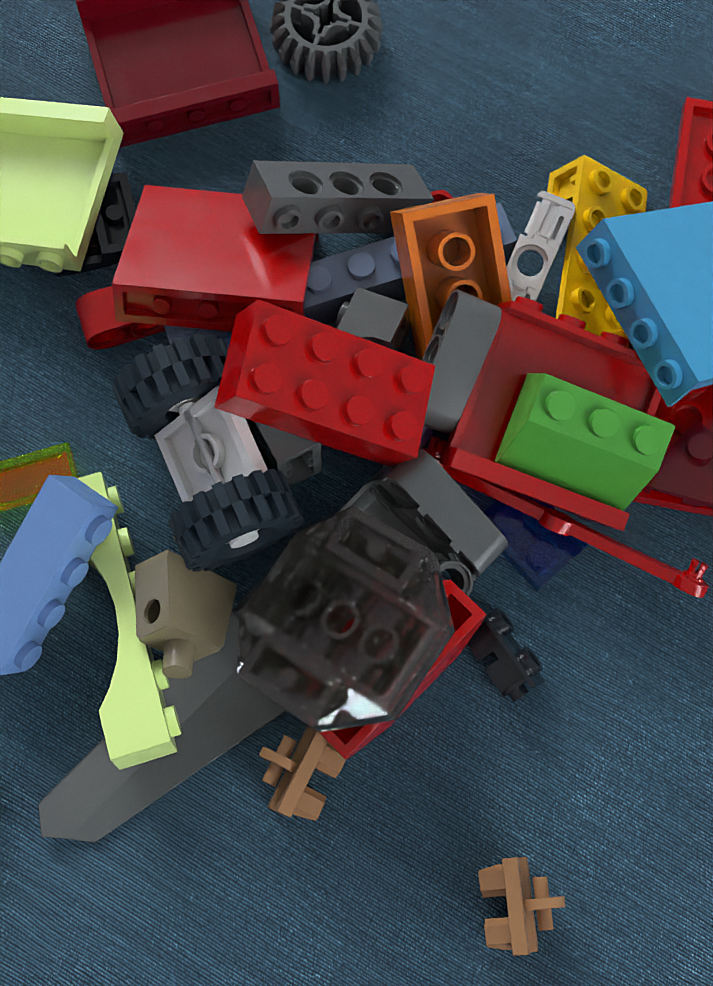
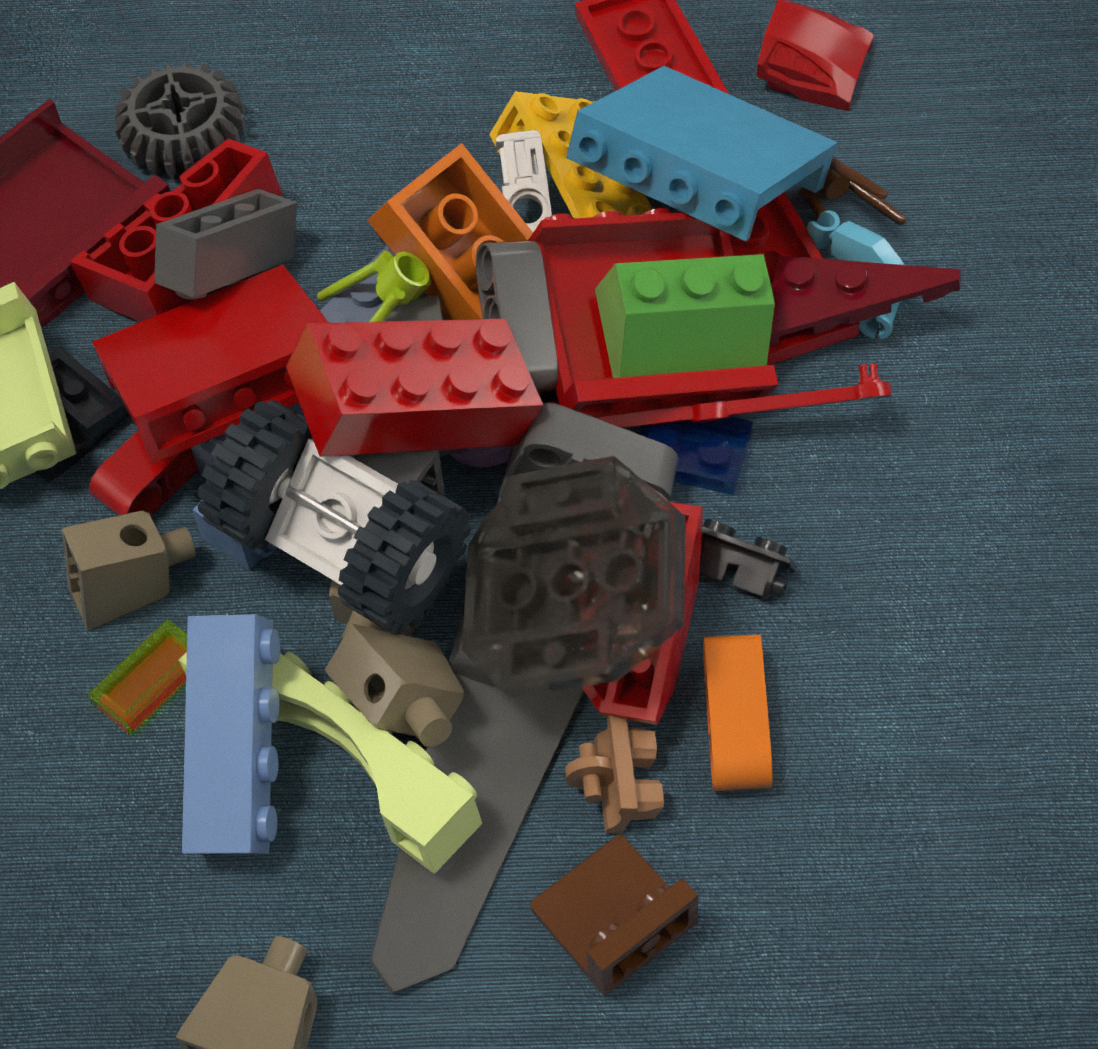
camera: 25 degrees left, 15 degrees down
(55, 381) = (120, 564): none -> dark tan torso
(227, 878) = (615, 913): none -> reddish brown bracket
(266, 126) = (123, 268): none -> red wedge
(277, 143) = (224, 243): none -> dark grey brick
(330, 196) = (293, 247): dark grey brick -> none
(379, 279) = (398, 281): none -> lime plant
(418, 779) = (737, 713): none -> orange beam
(518, 929) = (925, 787): medium nougat hips -> none

